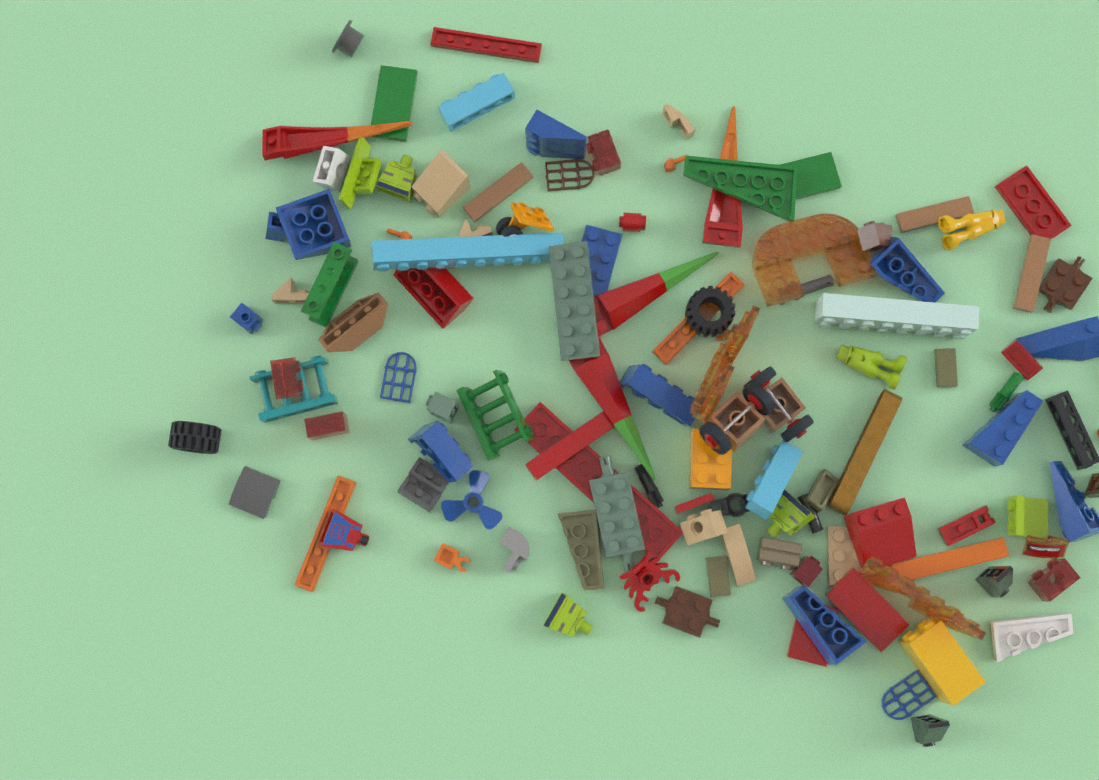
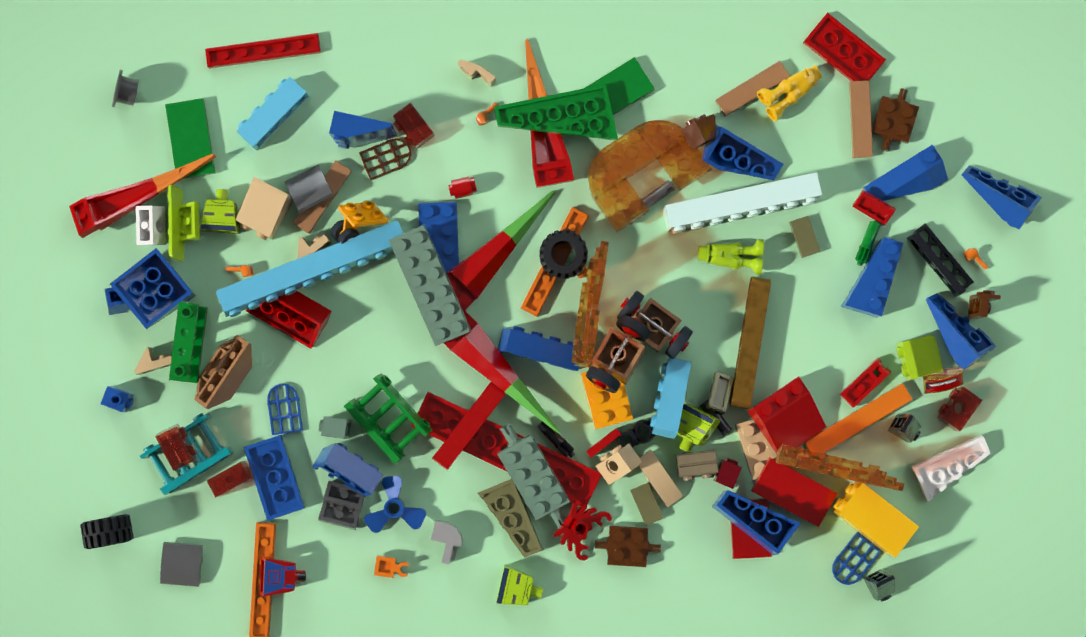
camera: 25 degrees left, 5 degrees up
(369, 438) = (274, 477): none -> blue plate
(488, 179) = (309, 188): none -> dark grey slope

